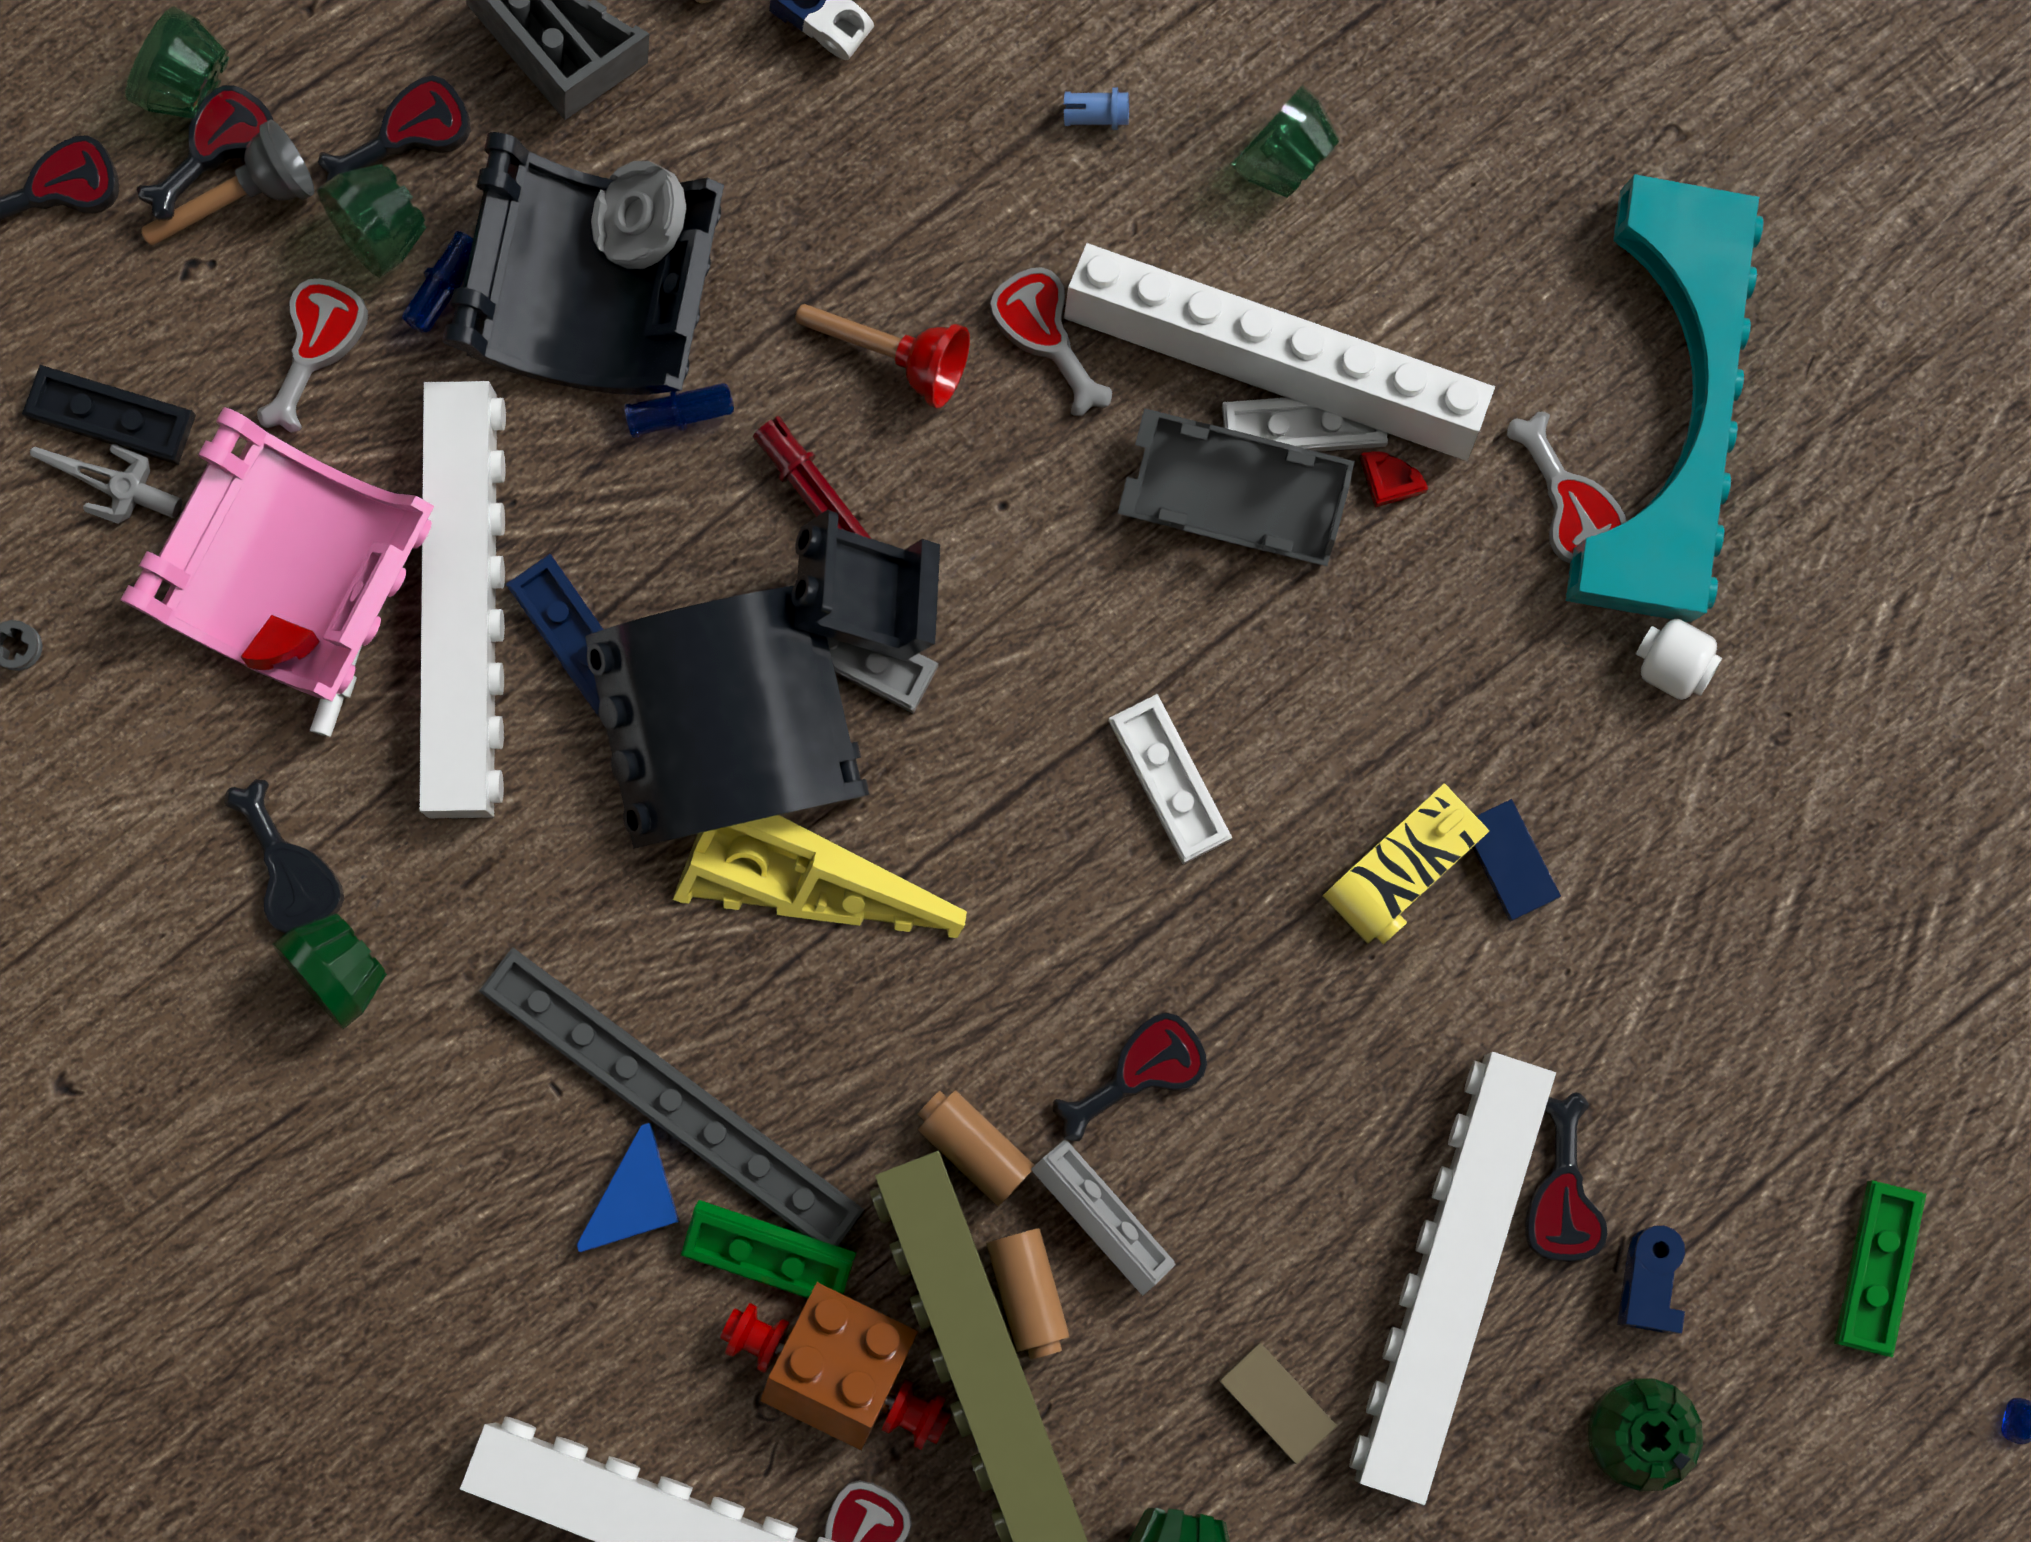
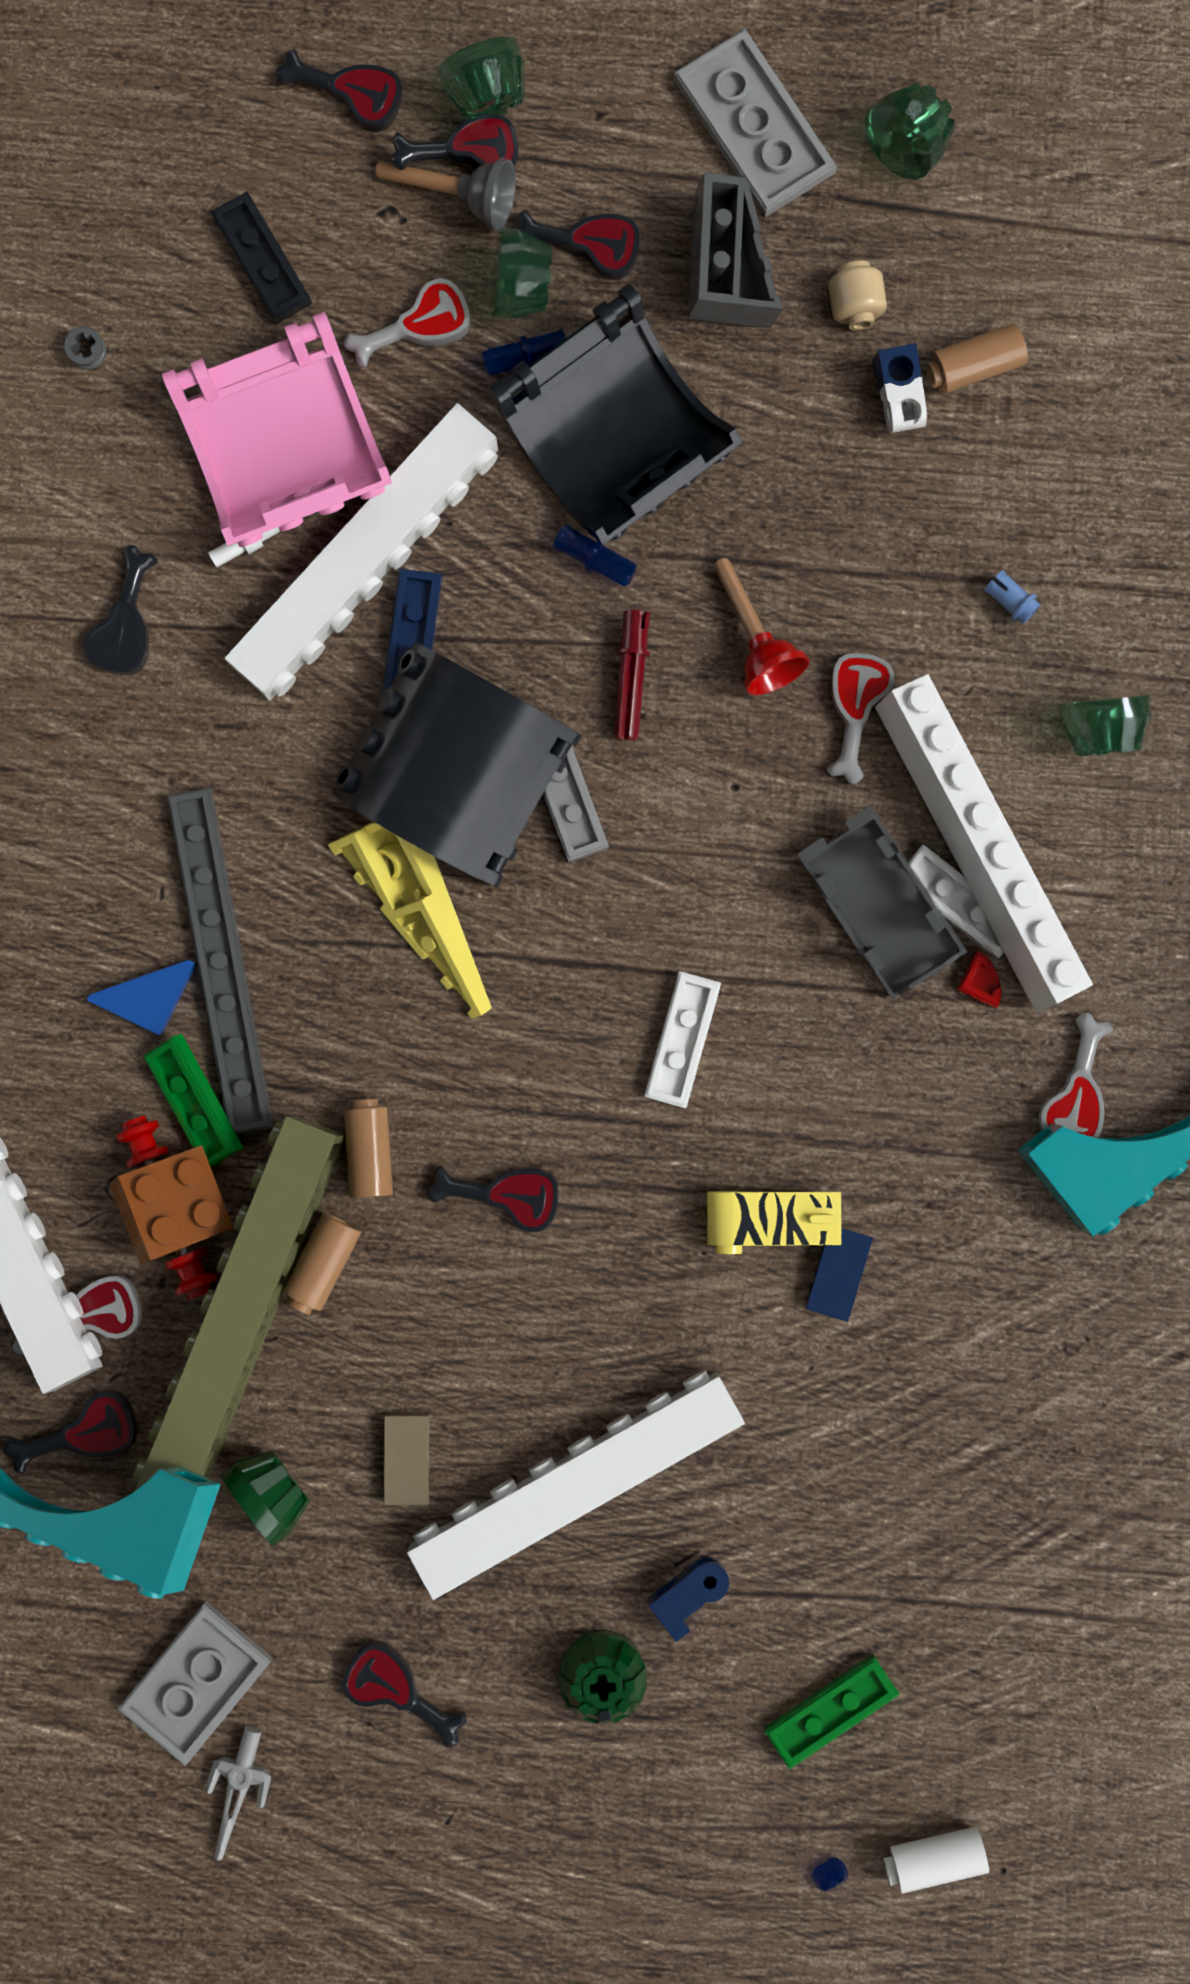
camera: 45 degrees right, 5 degrees up
(124, 487) = (231, 310): light grey piece -> none
(277, 643) = (233, 483): red tile -> none
(332, 966) = (92, 704): dark green piece -> none
(639, 215) = (676, 415): light grey tile -> none
(866, 589) = (603, 763): black panel -> none
(1103, 1217) = (404, 1260): light grey tile -> none
(1560, 1217) = (671, 1506): black piece -> none
(1678, 659) = (1051, 1247): white head -> none

